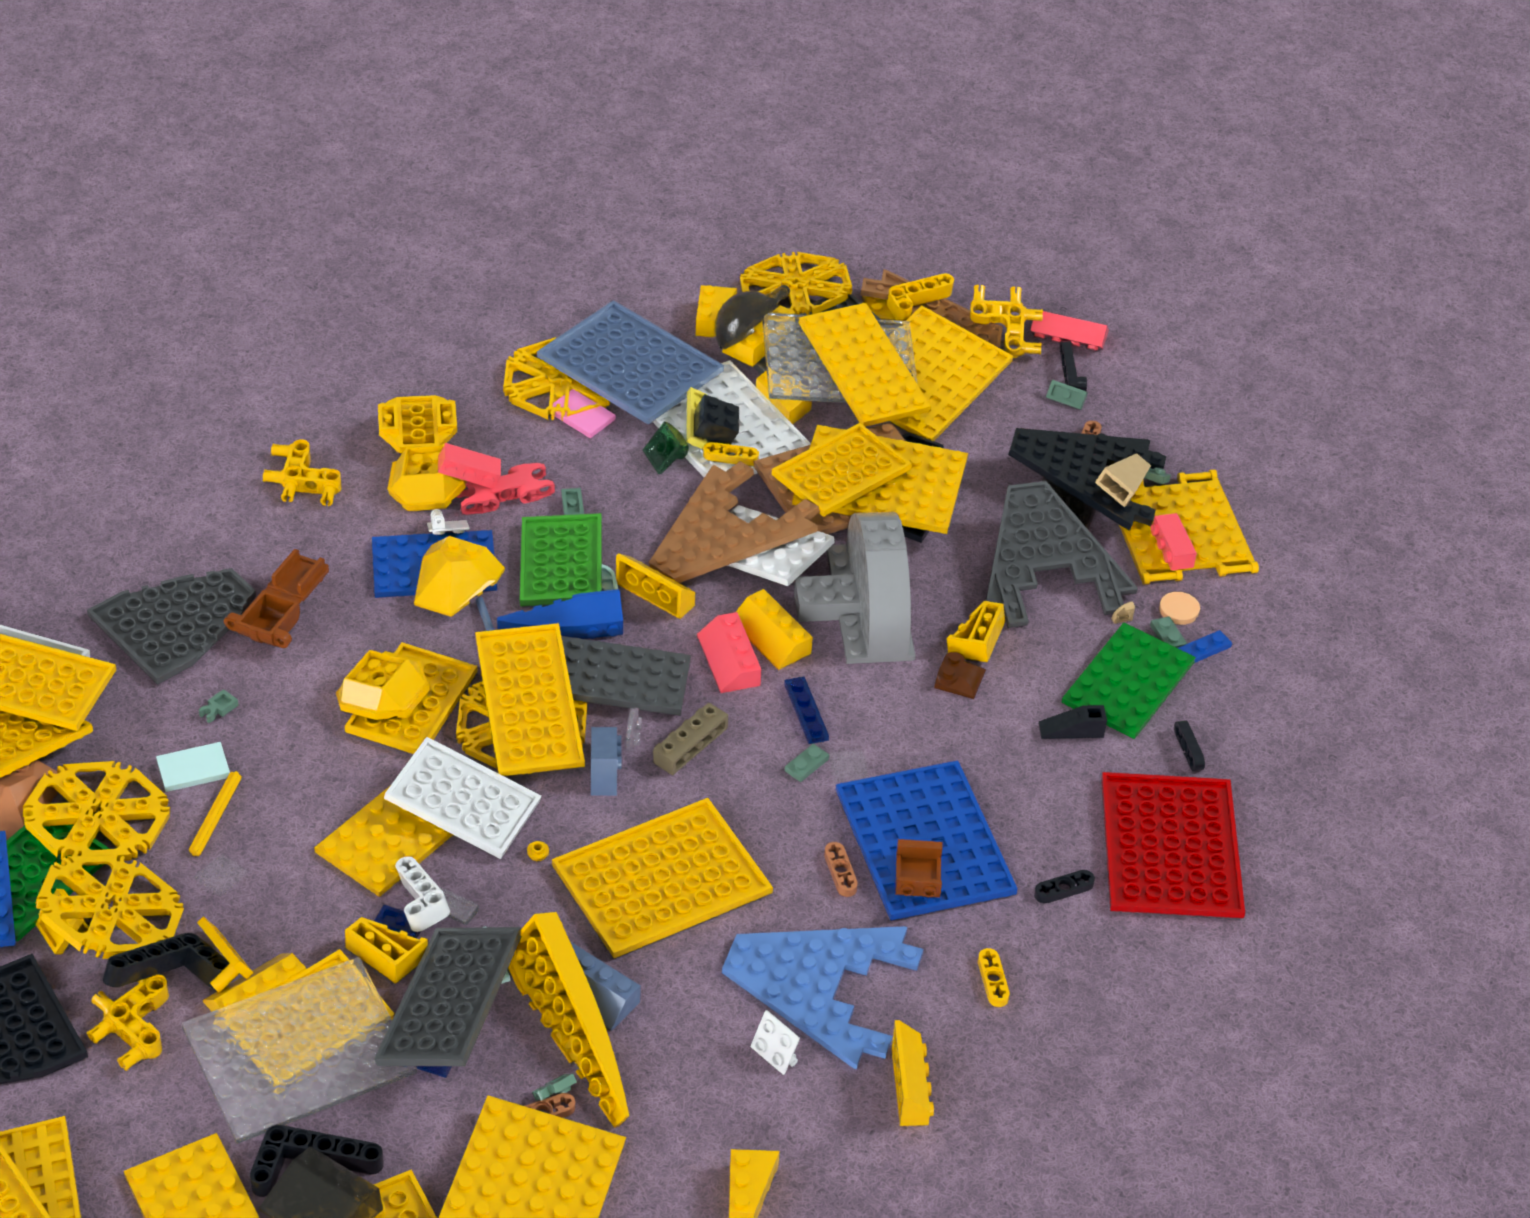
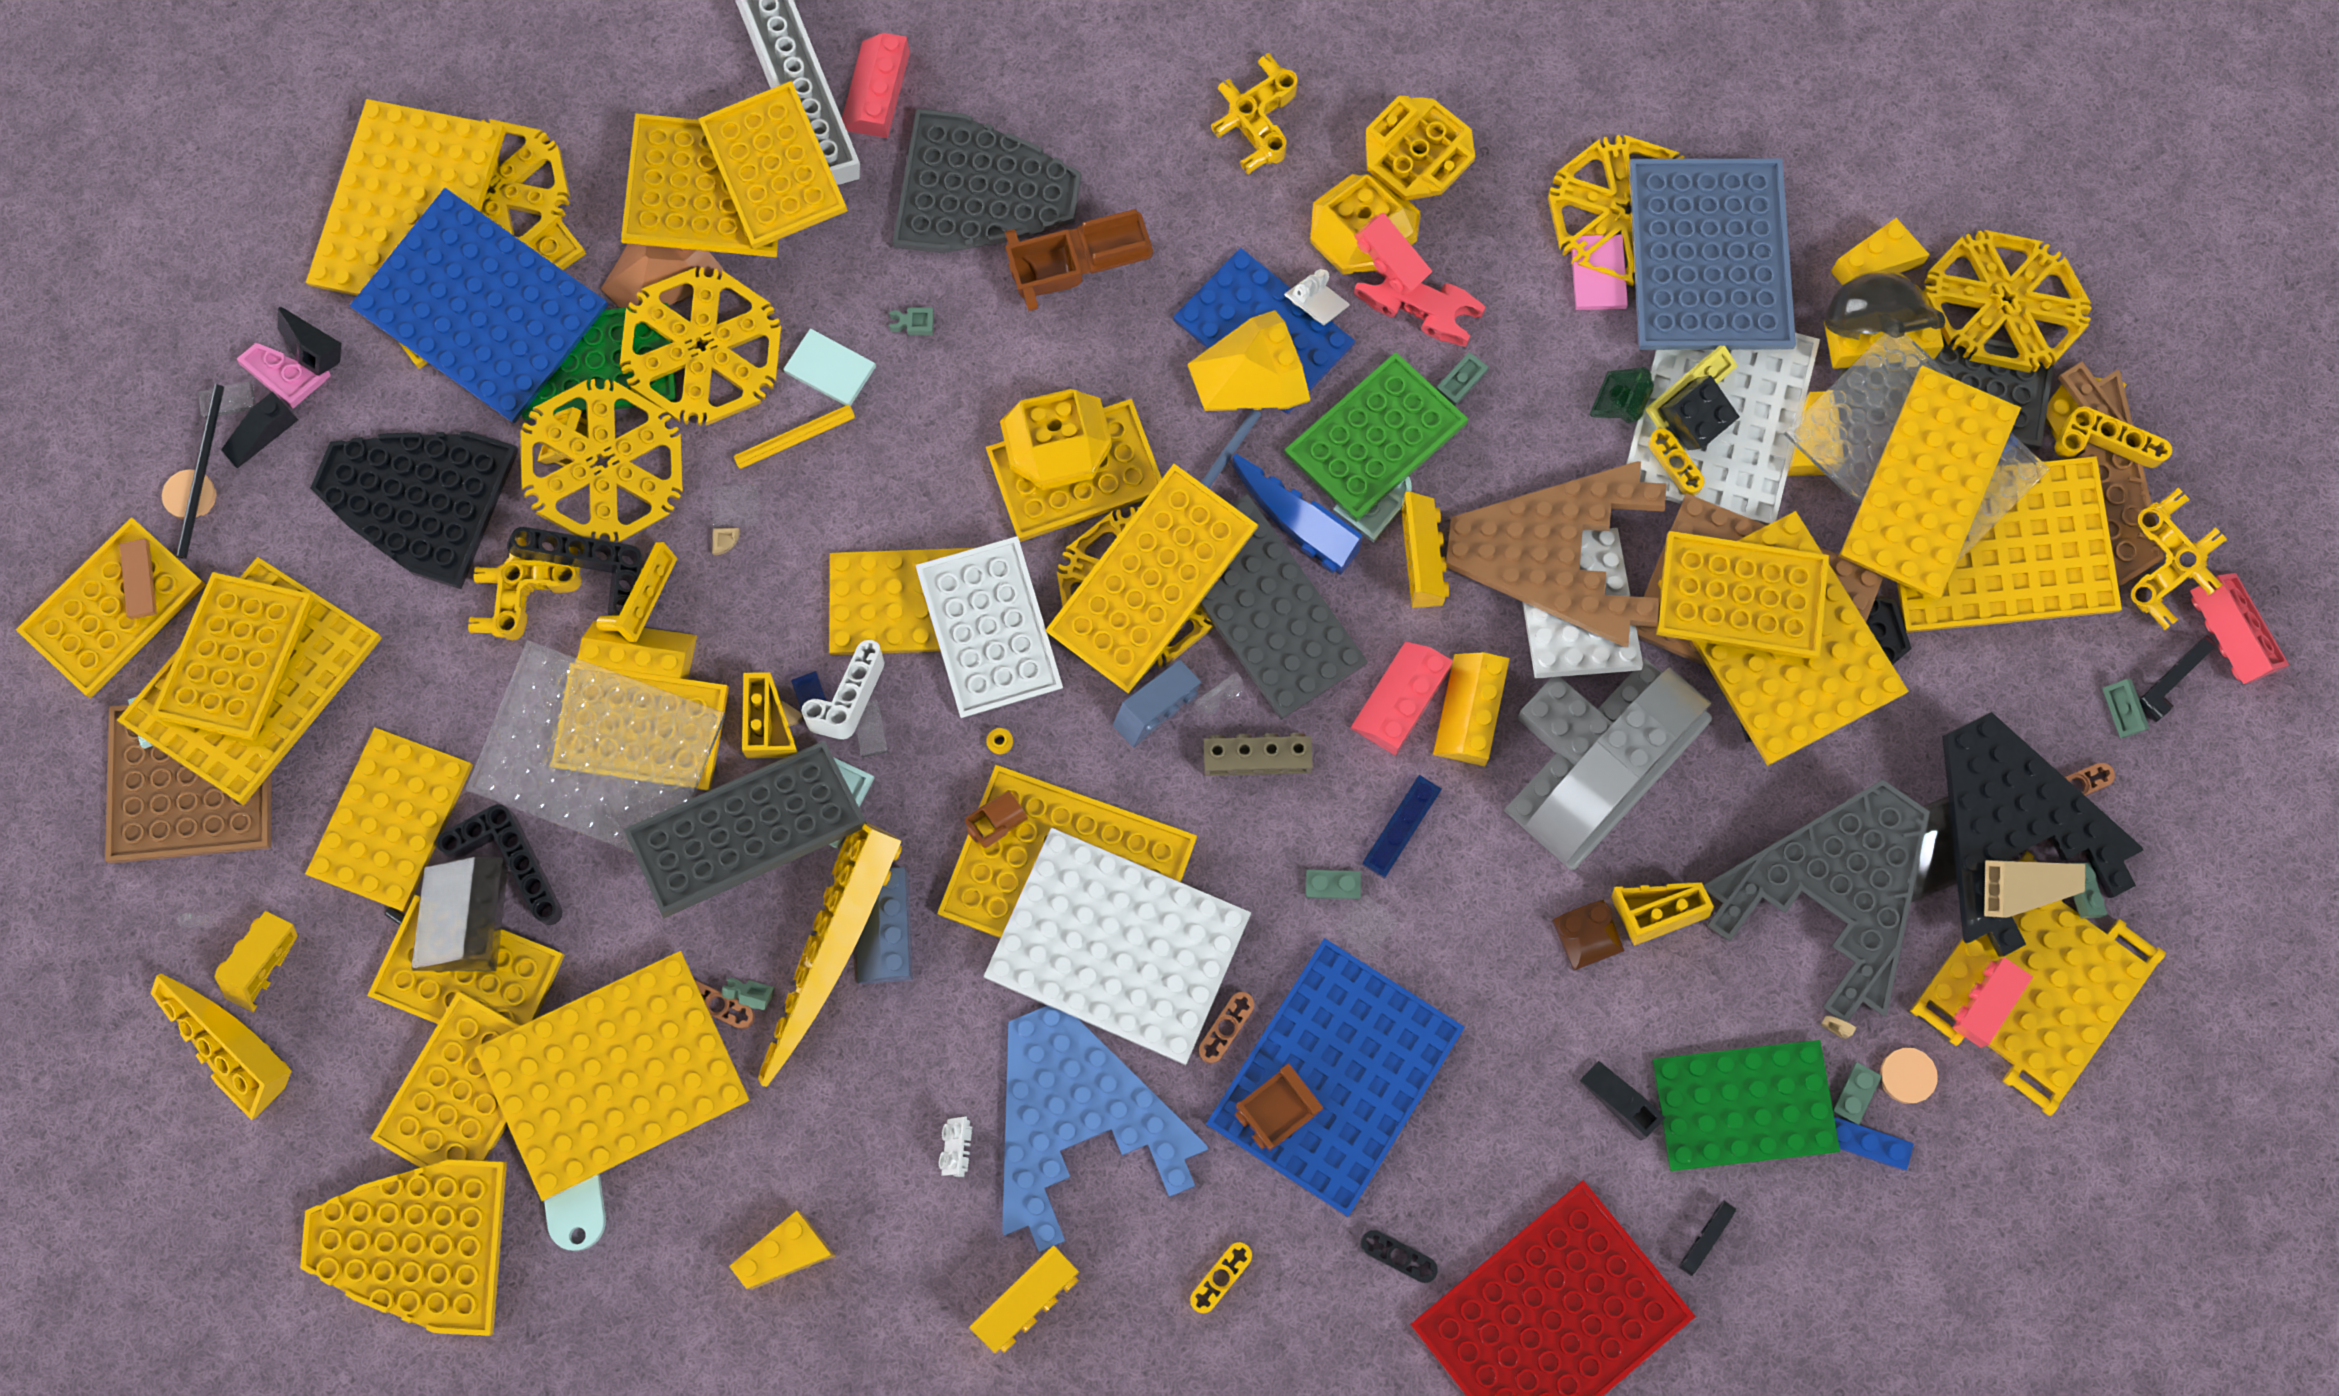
camera: 55 degrees right, 30 degrees up
(43, 614) = (876, 85): none -> coral slope
(235, 895) = (724, 539): none -> tan tile
(590, 873) = (1003, 814): none -> dark orange piece
(734, 878) = (1118, 946): none -> white plate

